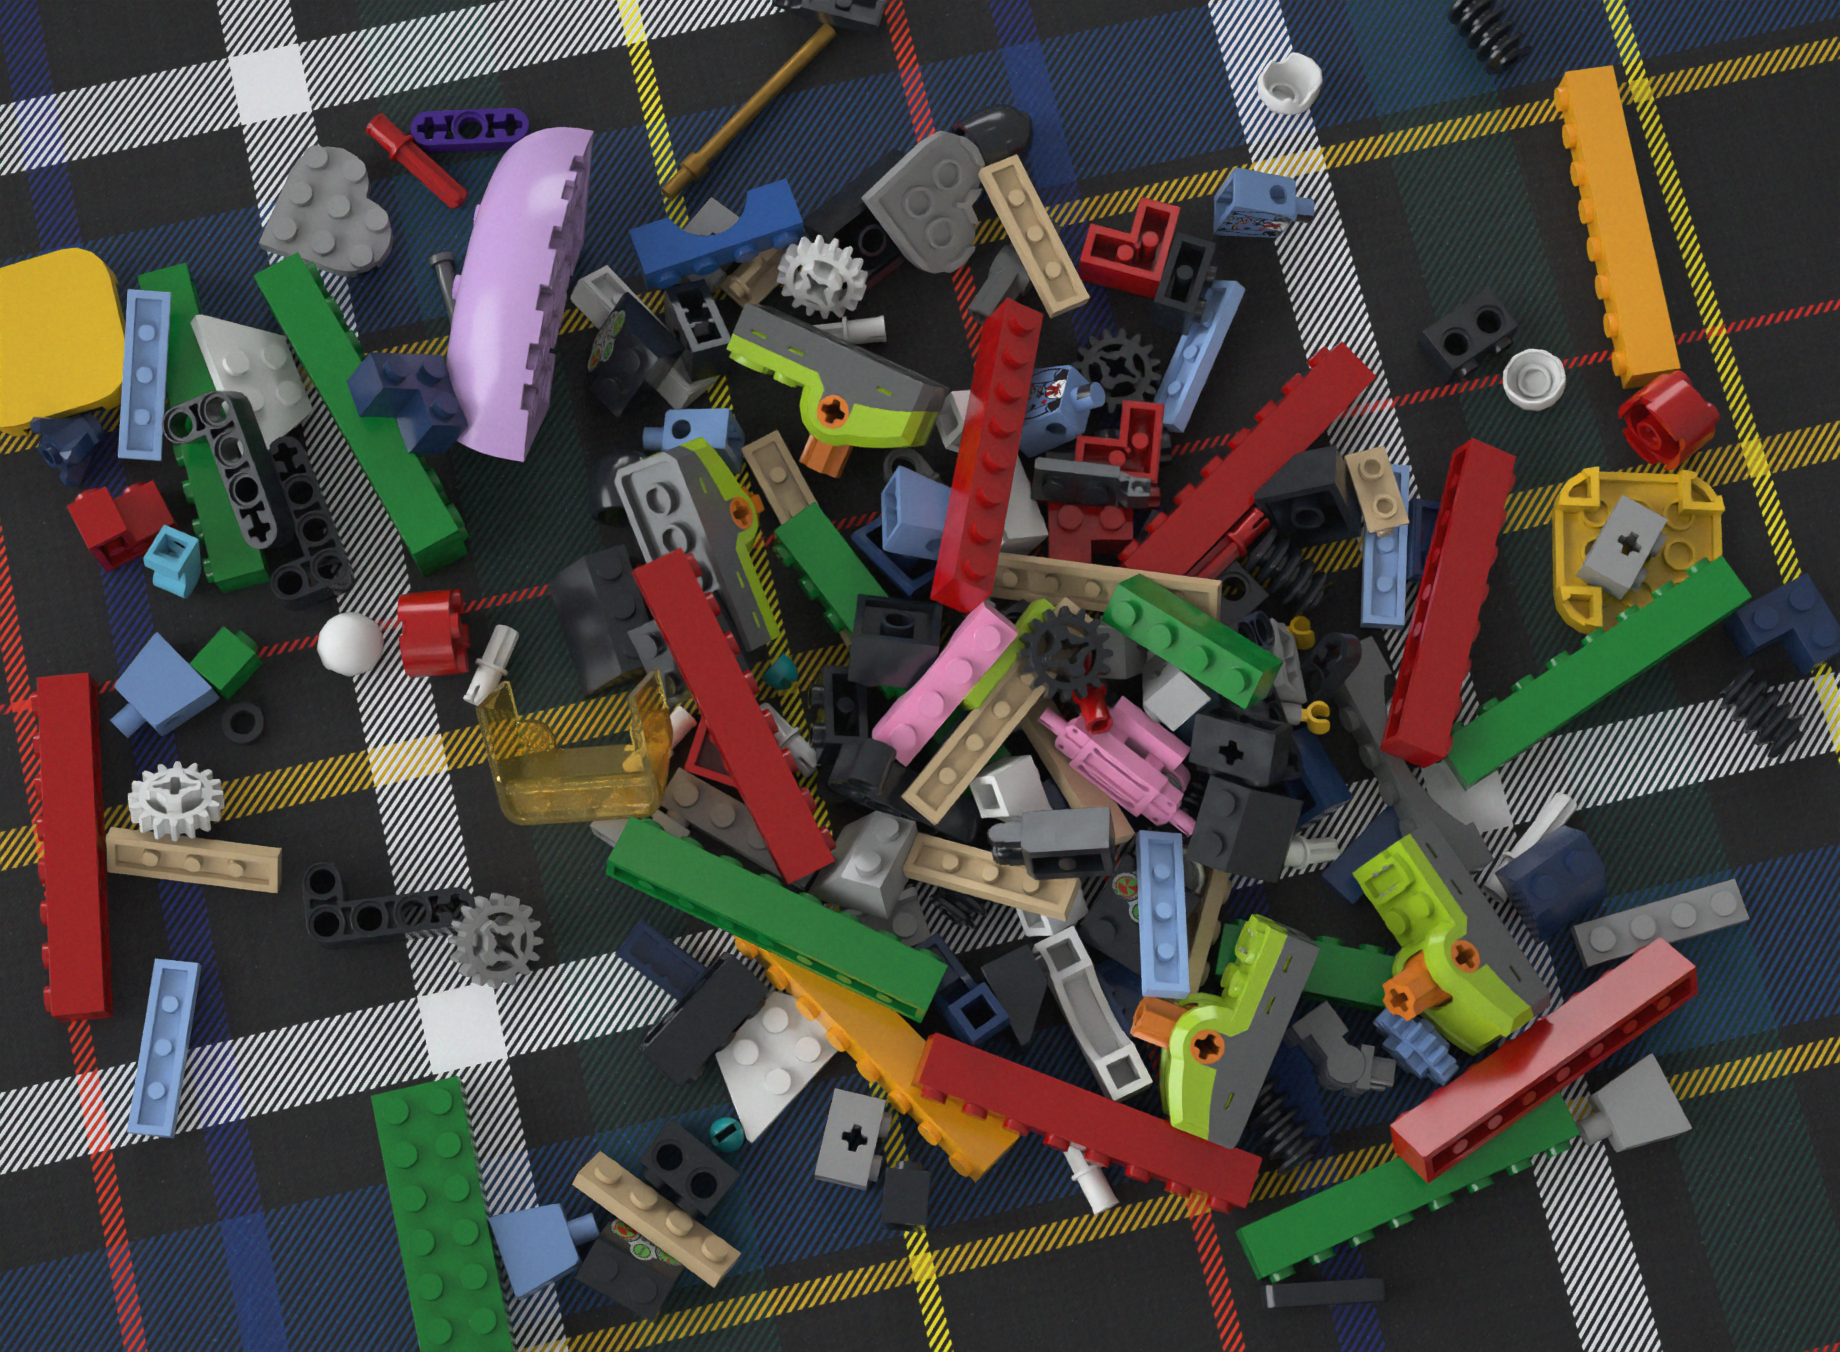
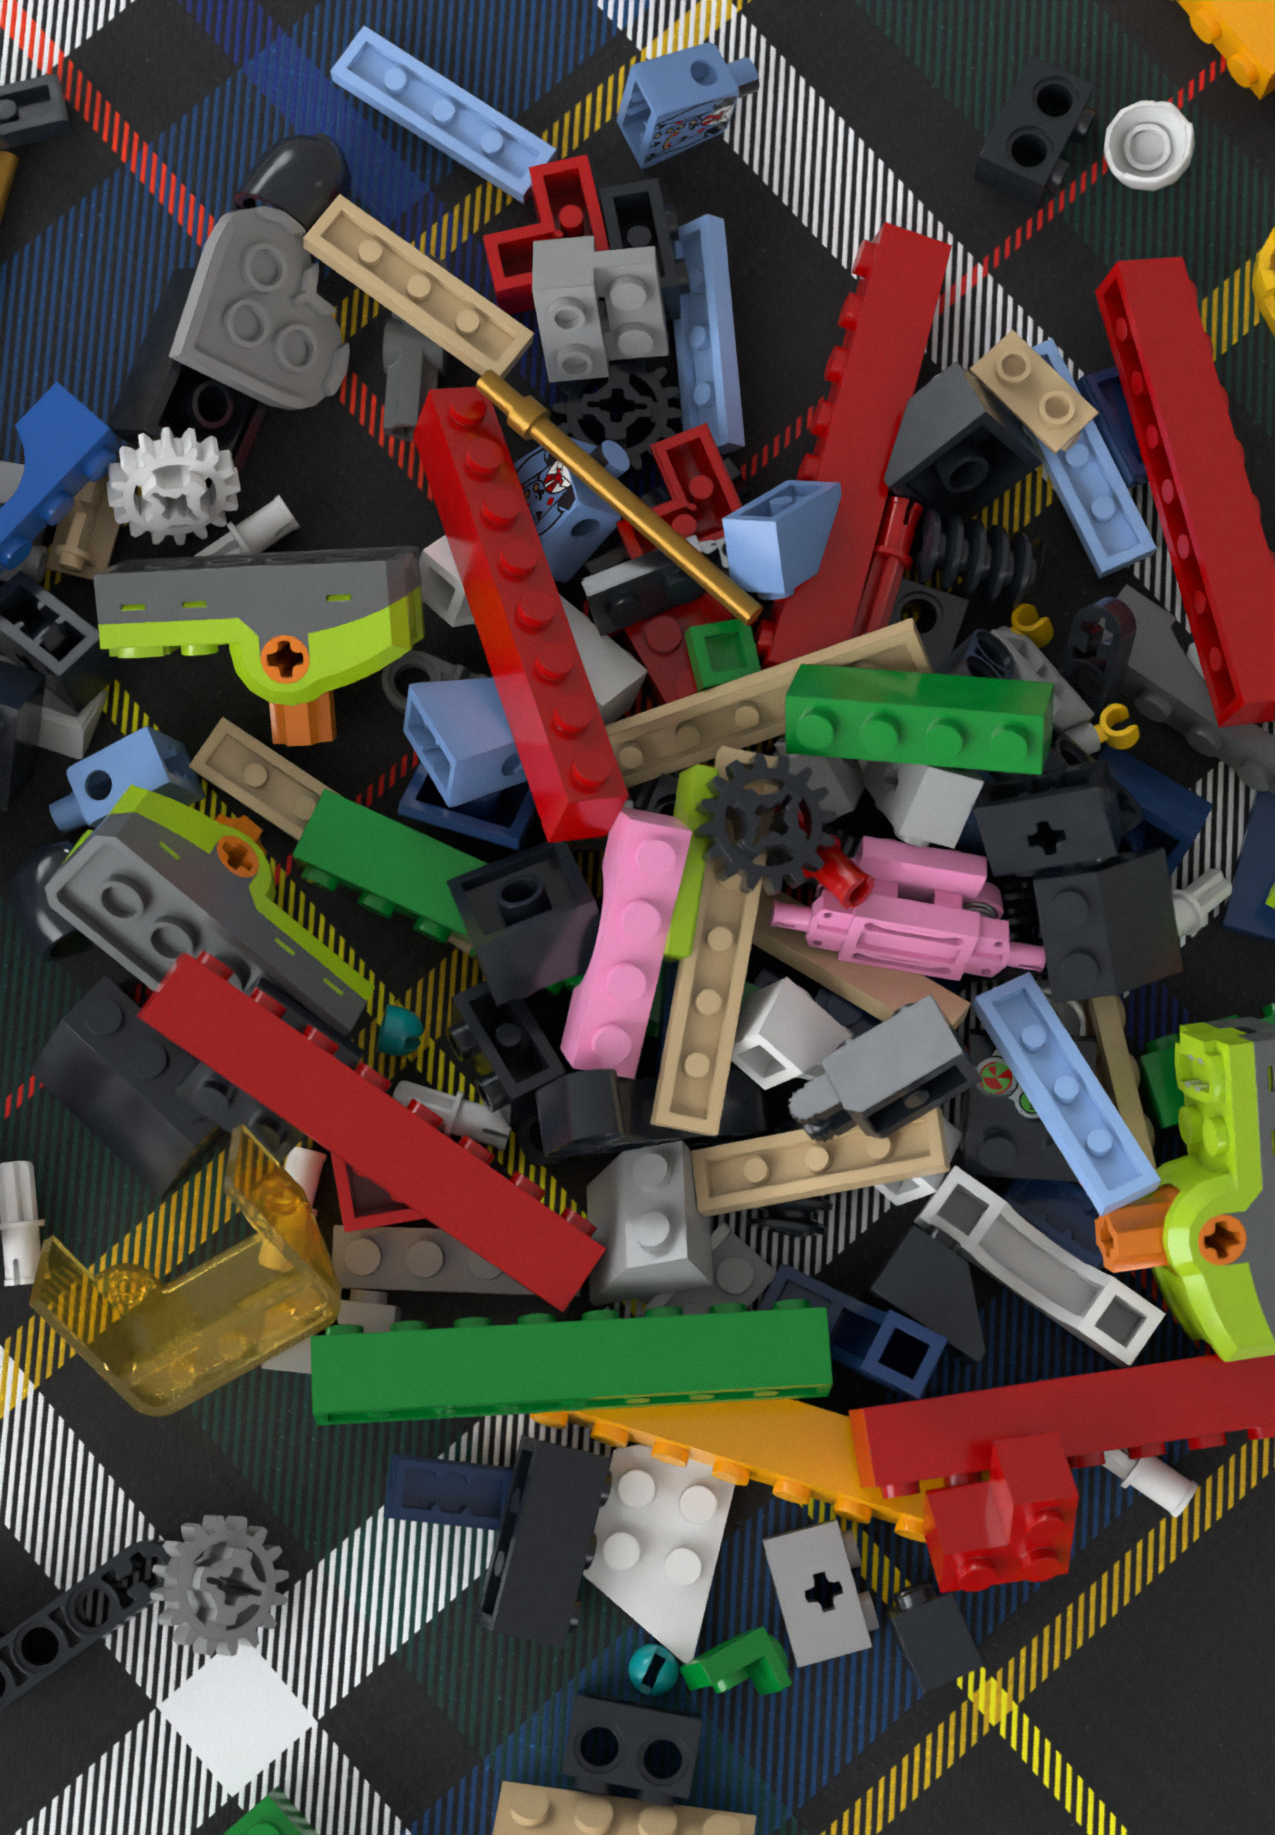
camera: 20 degrees left, 5 degrees up
(780, 1152) = (738, 1658): none -> green bracket
(985, 1149) = (1005, 1526): none -> red brick
(1058, 347) = (532, 421): none -> pearl gold bar
(1098, 544) = (721, 653): none -> green plate
(1107, 137) = (441, 113): none -> light blue plate
(1117, 305) = (574, 323): none -> light grey brick
(1169, 493) = (780, 537): none -> medium blue slope

